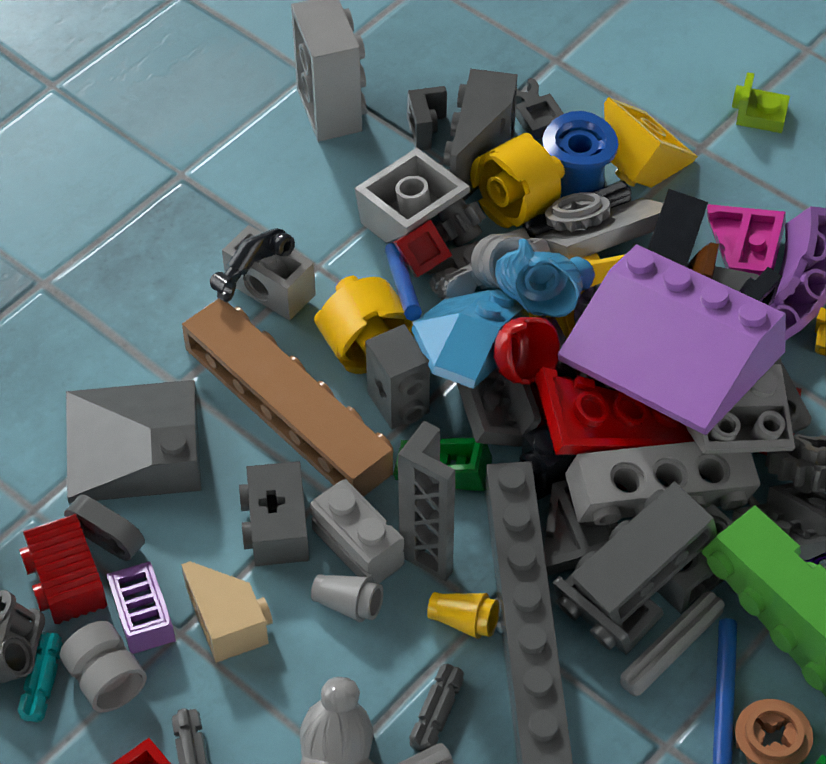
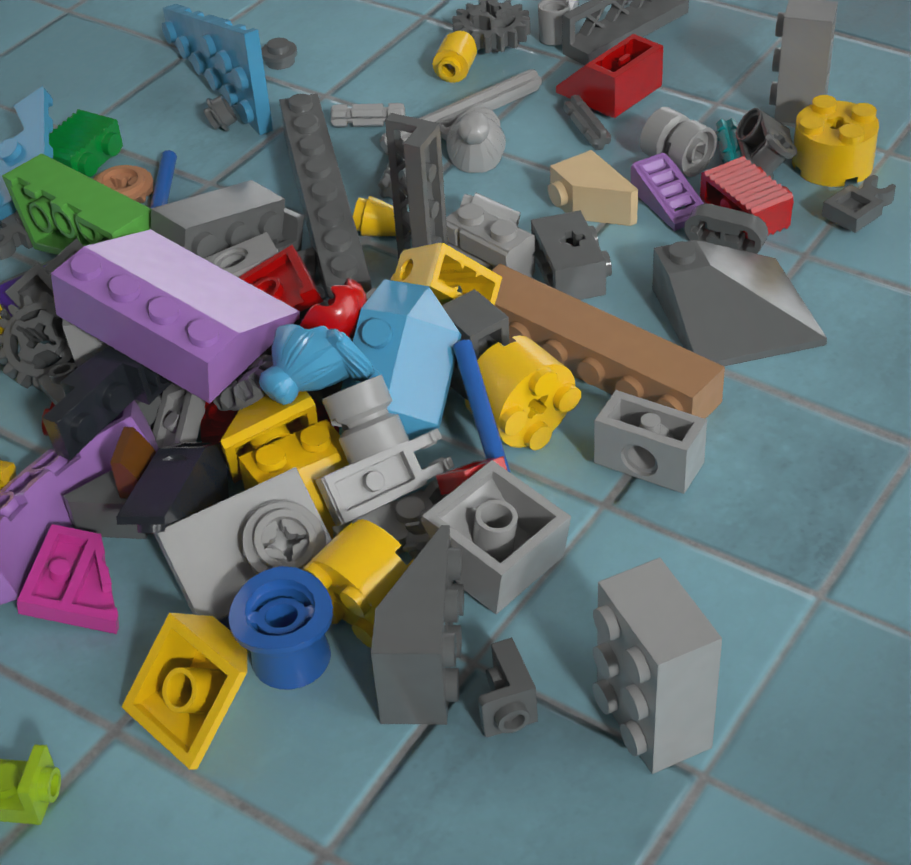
camera: 175 degrees right, 10 degrees down
(250, 250) = (646, 416): black arm -> none
(420, 400) = (444, 271): none -> yellow torso
(535, 111) = (349, 723): dark grey plate -> none

